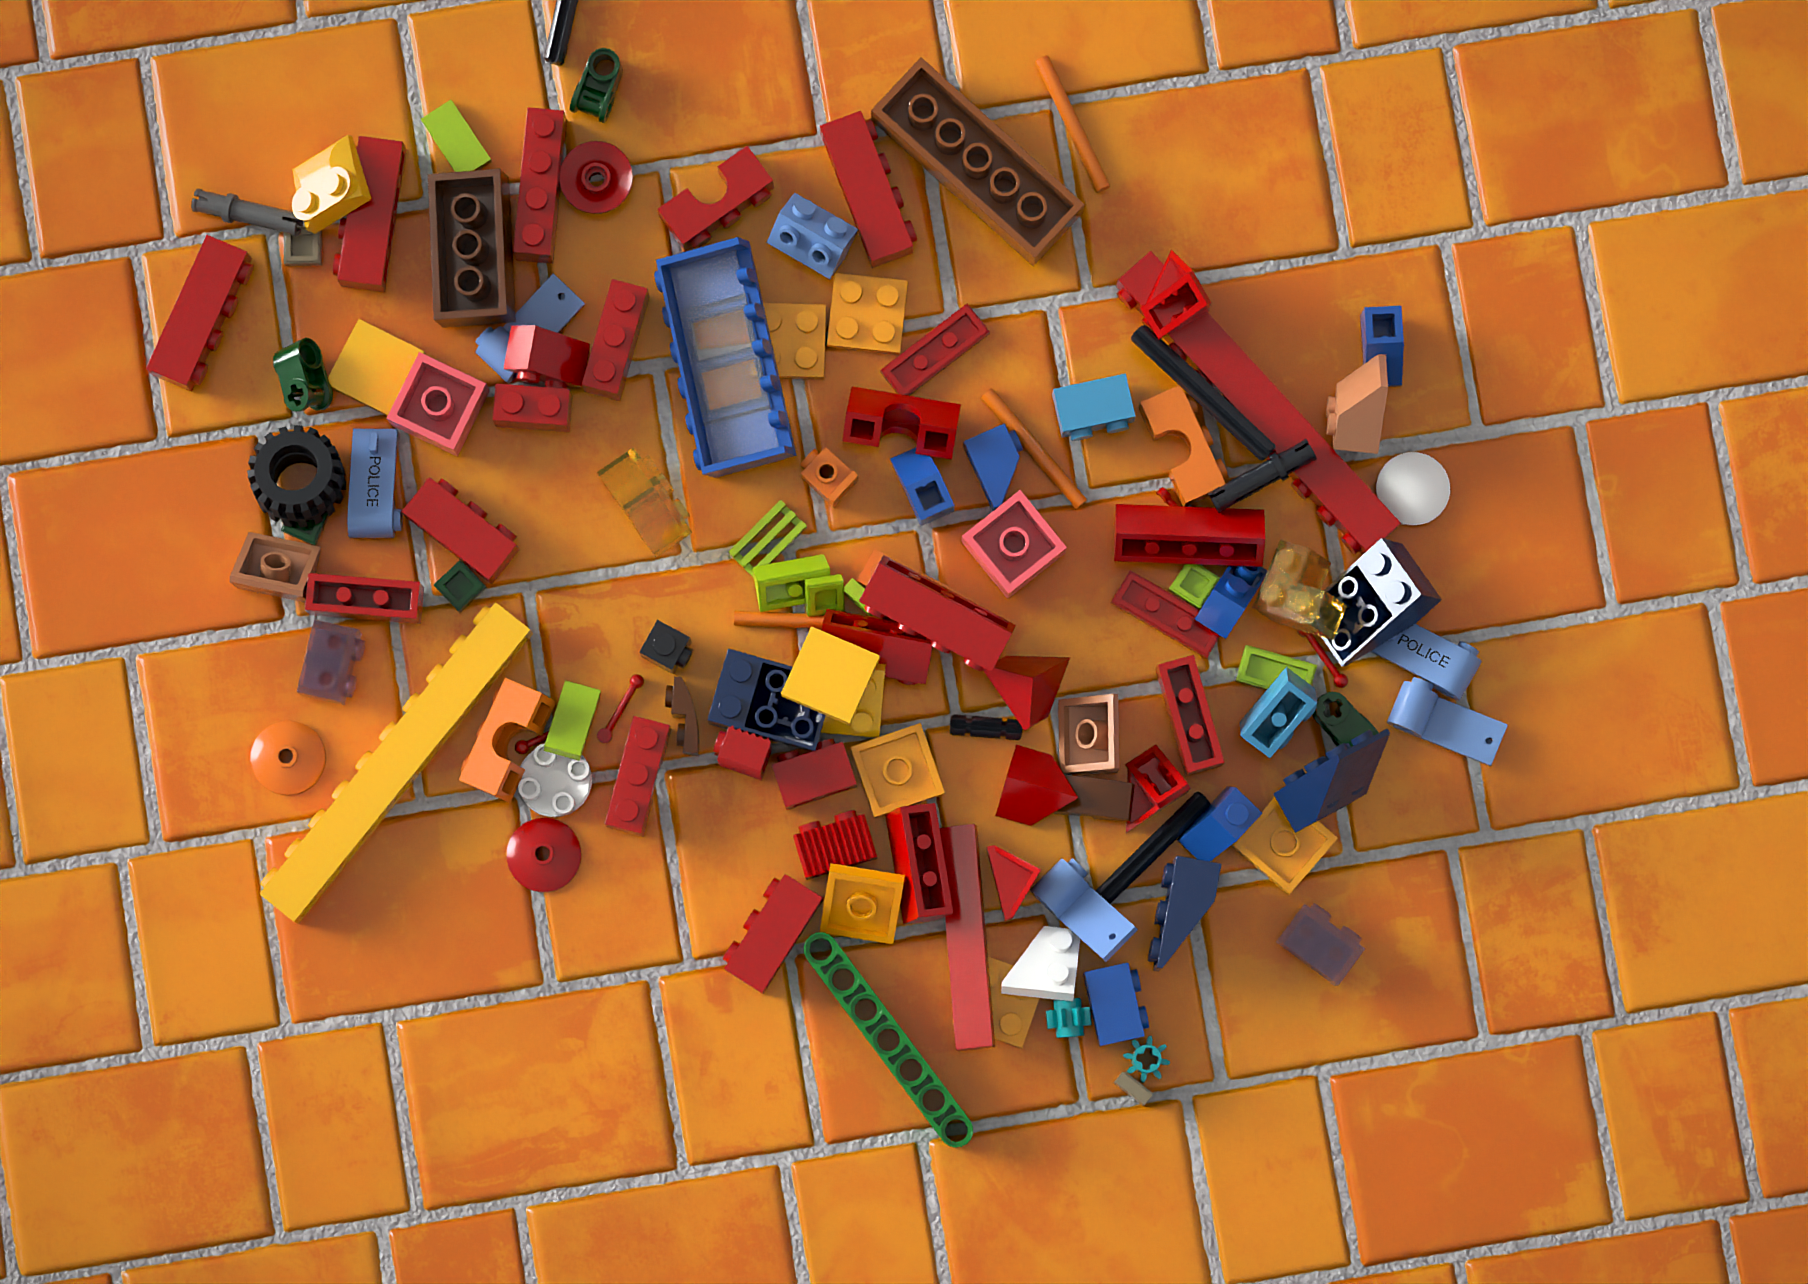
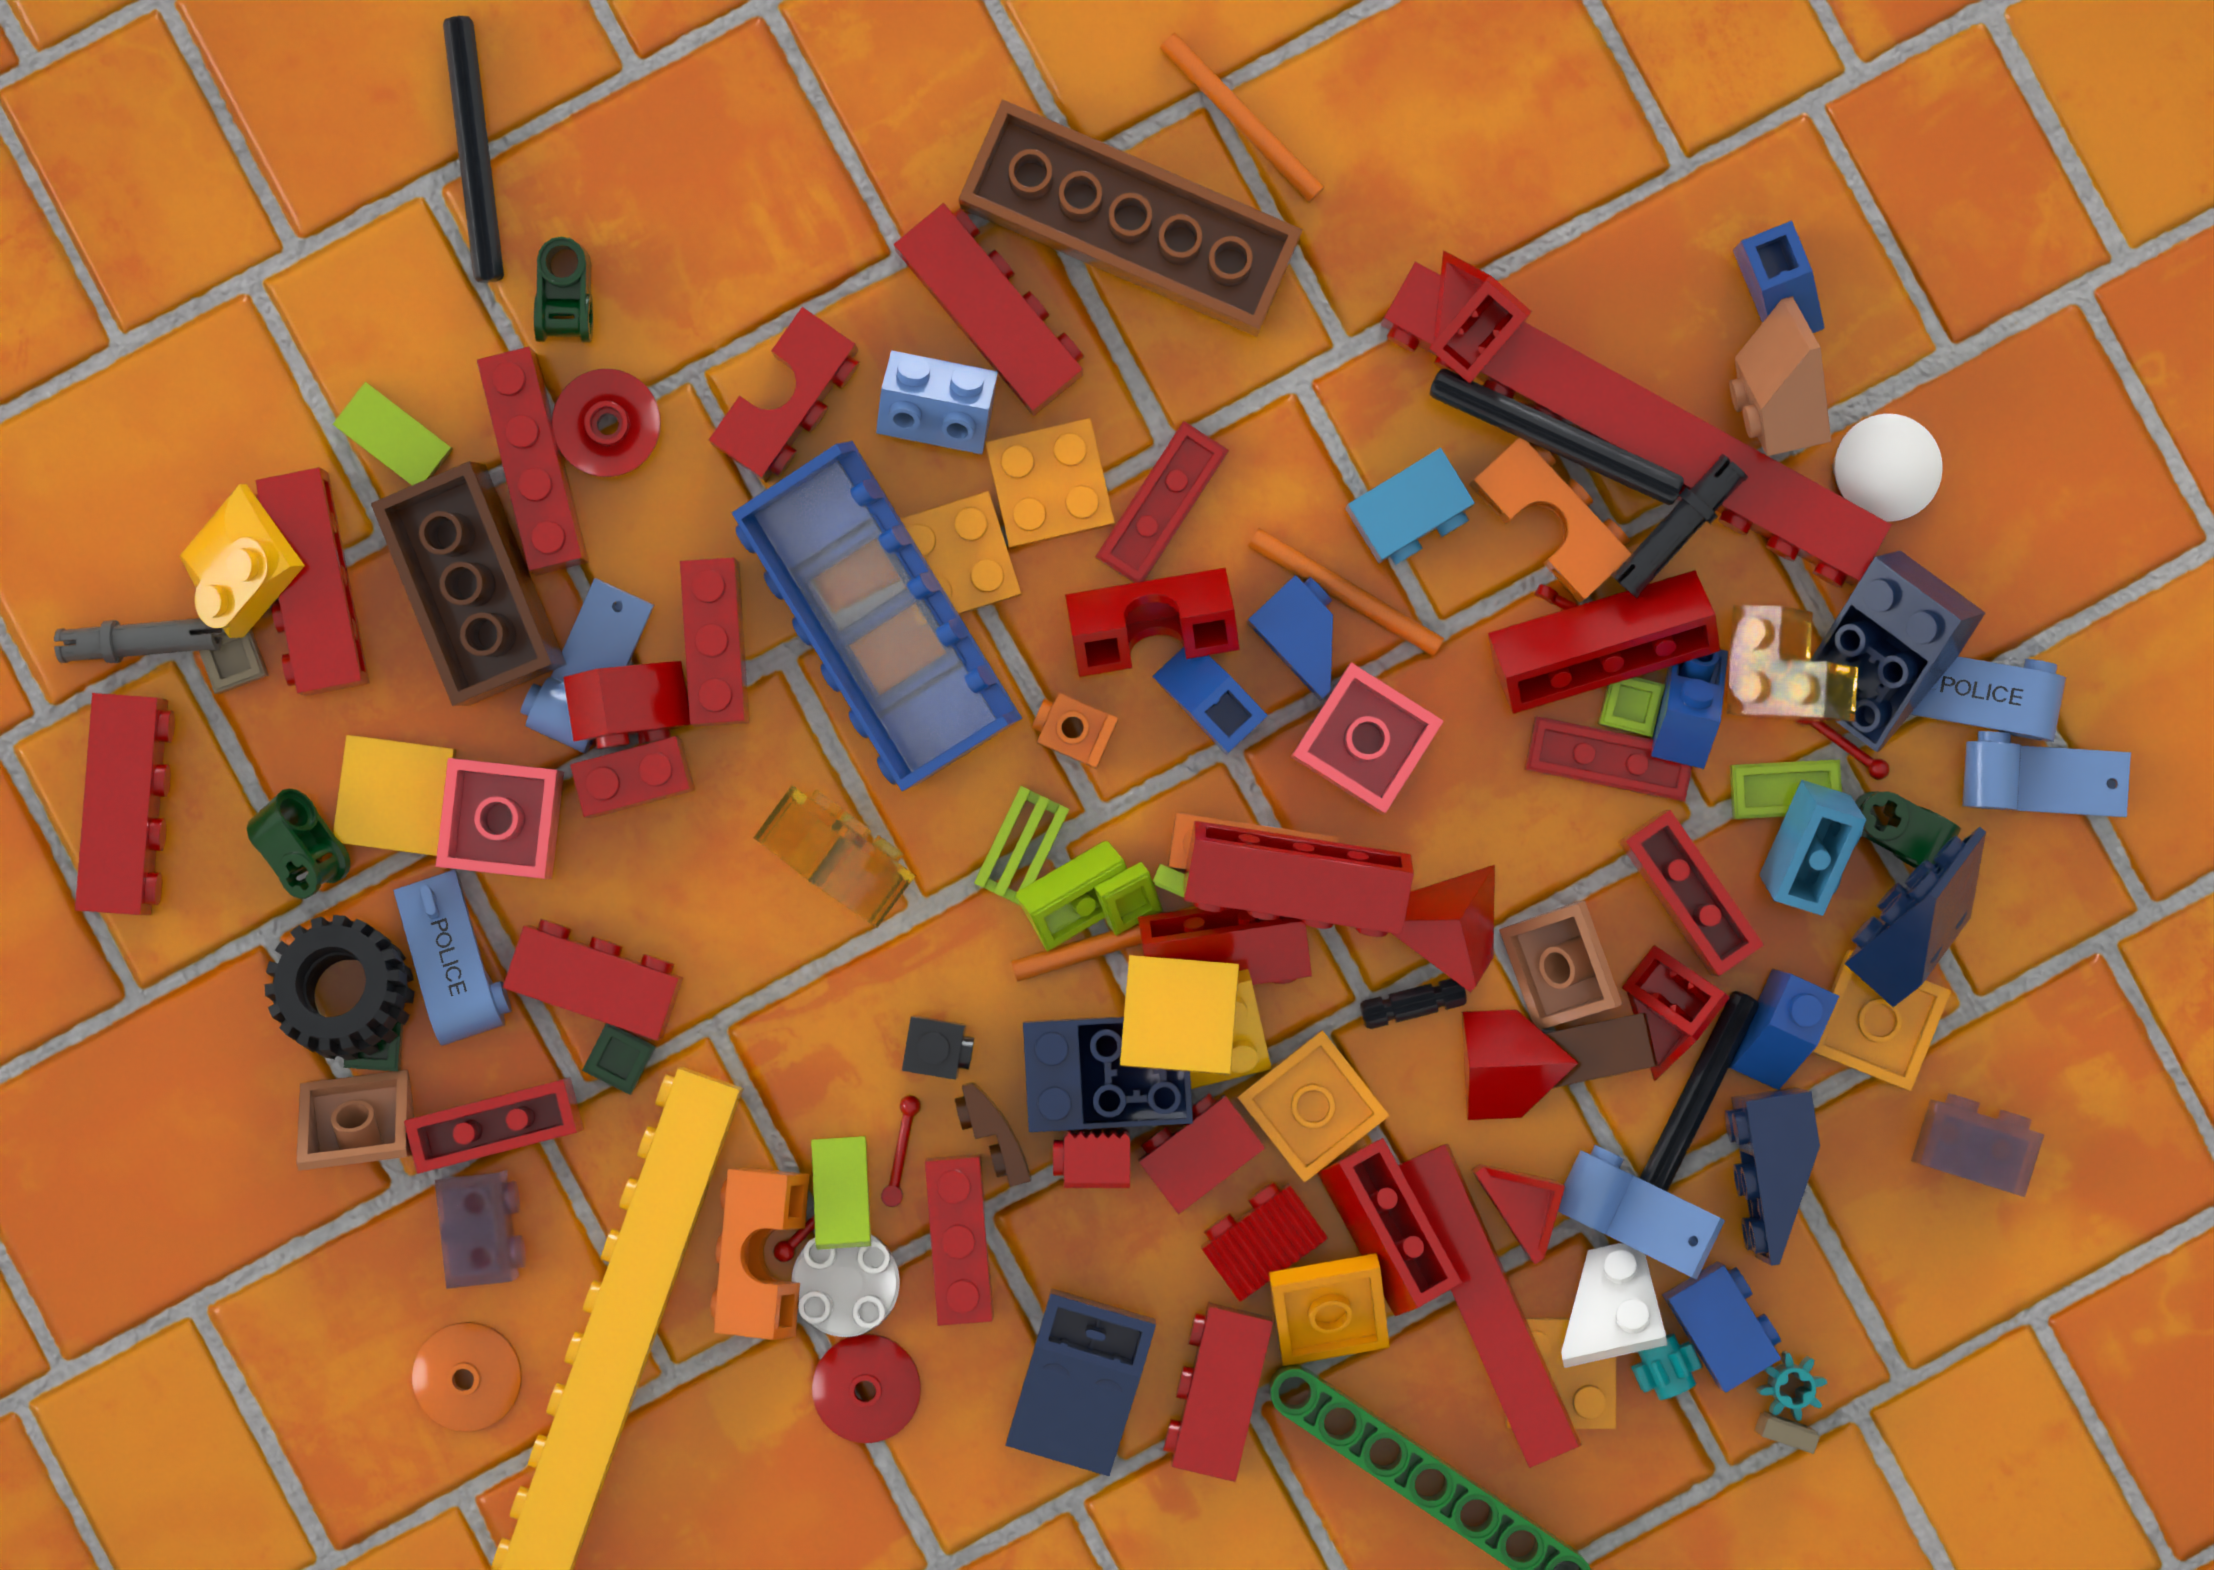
camera: 20 degrees left, 5 degrees up
(683, 896) = (1081, 1382): none -> dark blue slope

